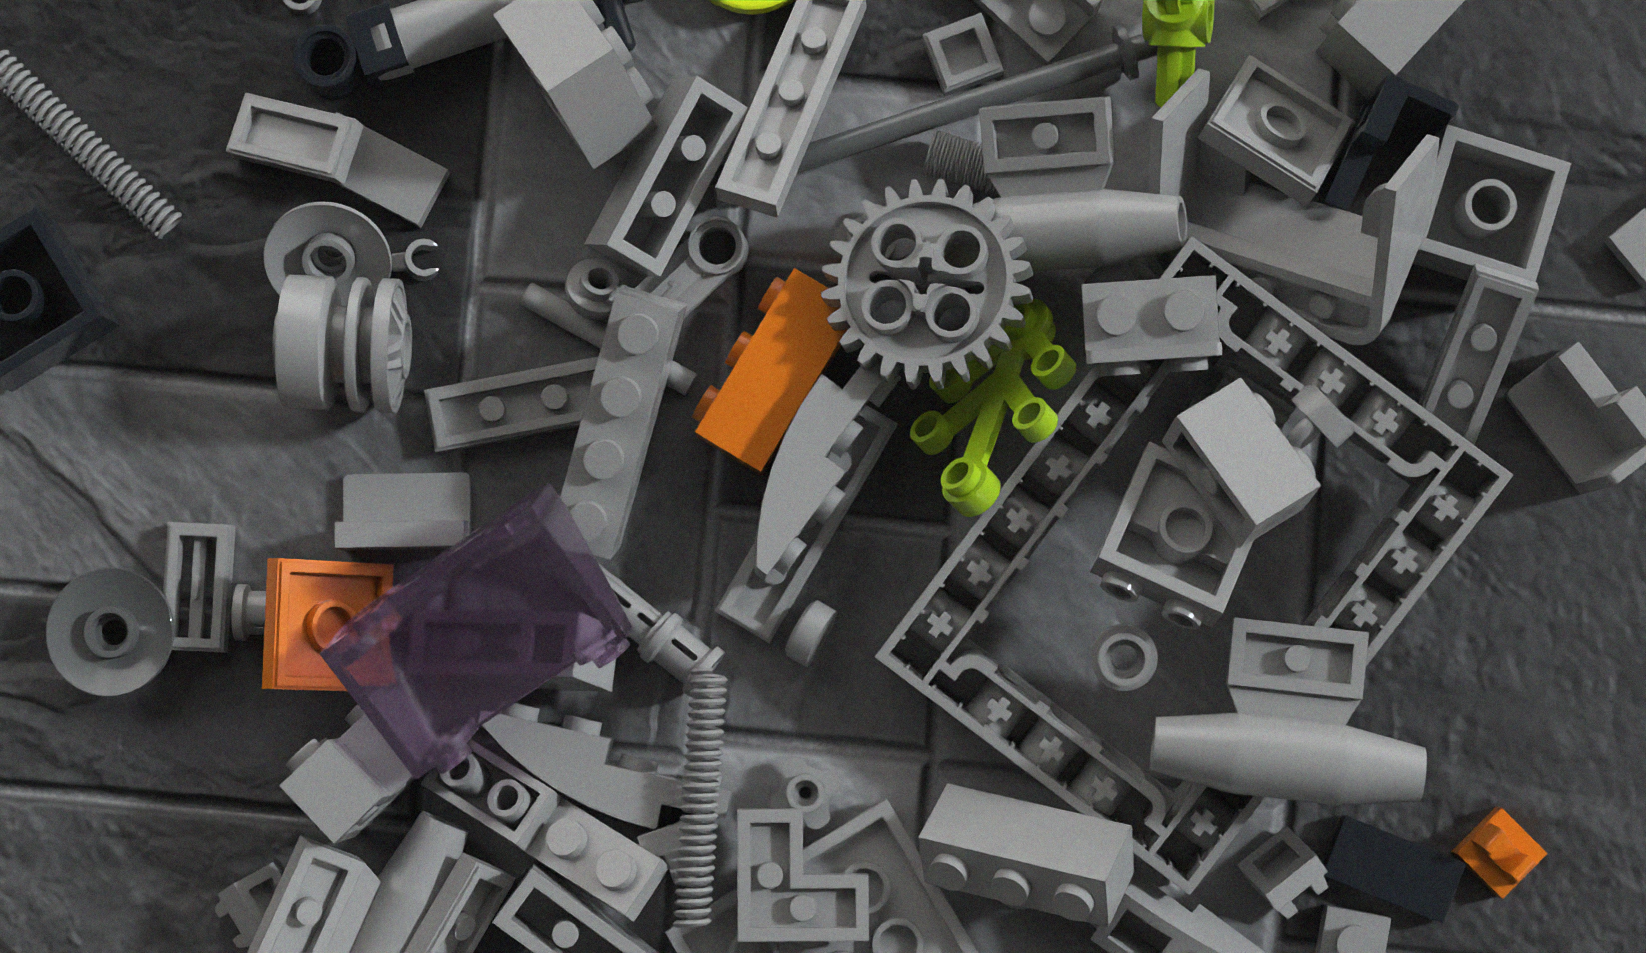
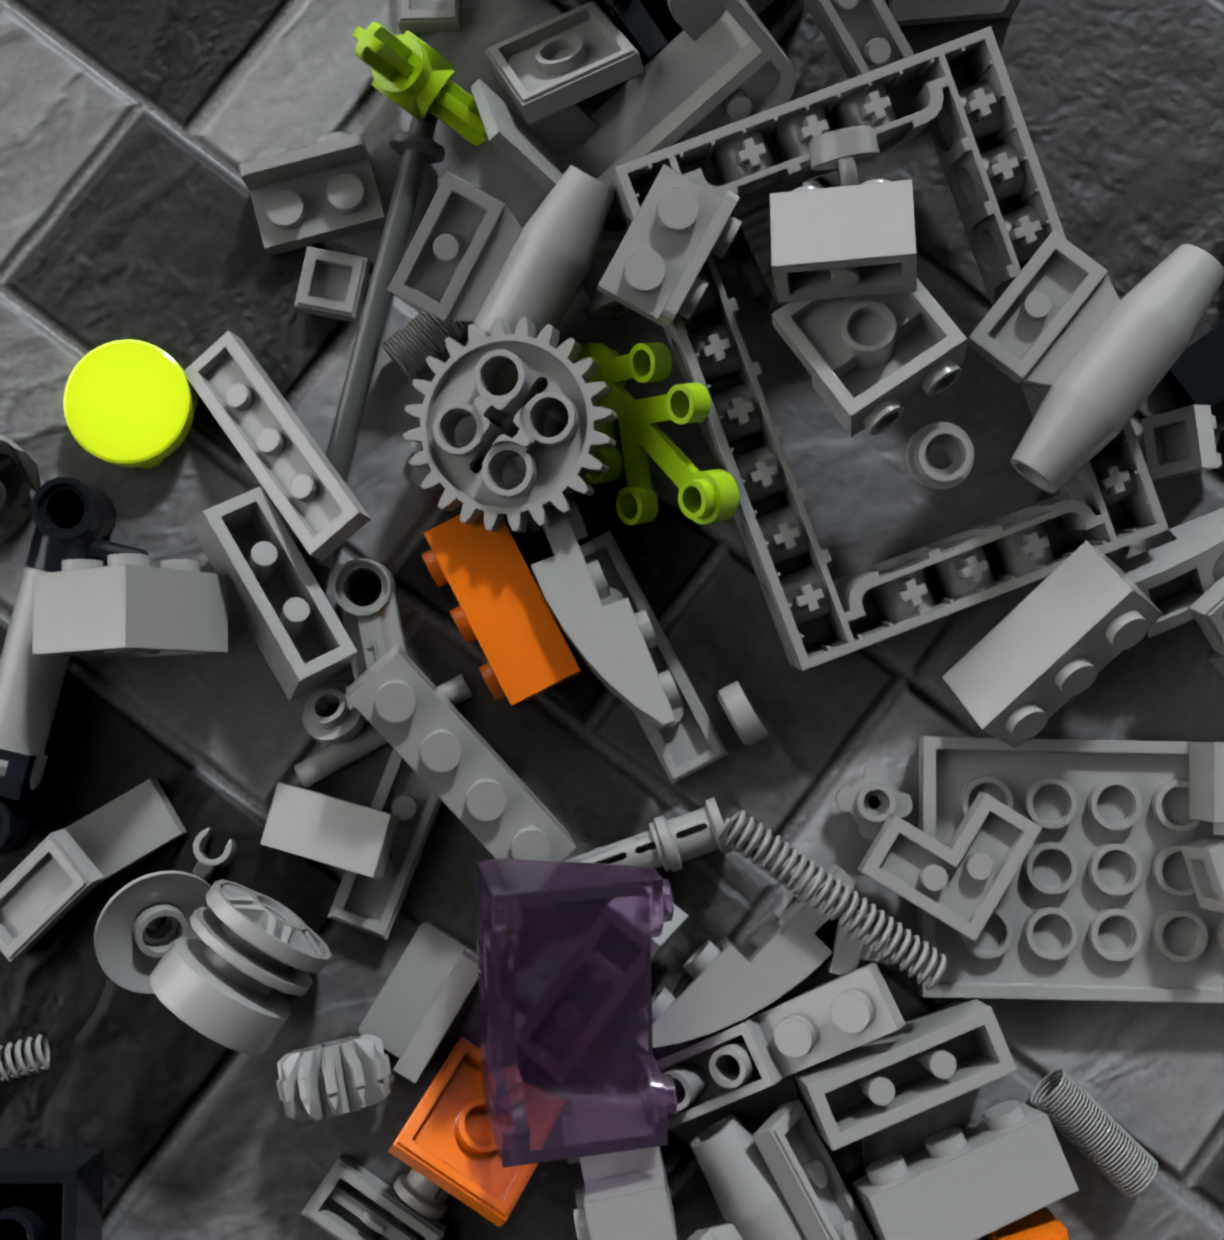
camera: 60 degrees left, 0 degrees up
(298, 478) = (334, 1077): none -> light grey gear
(497, 346) = (330, 830): none -> light grey tile

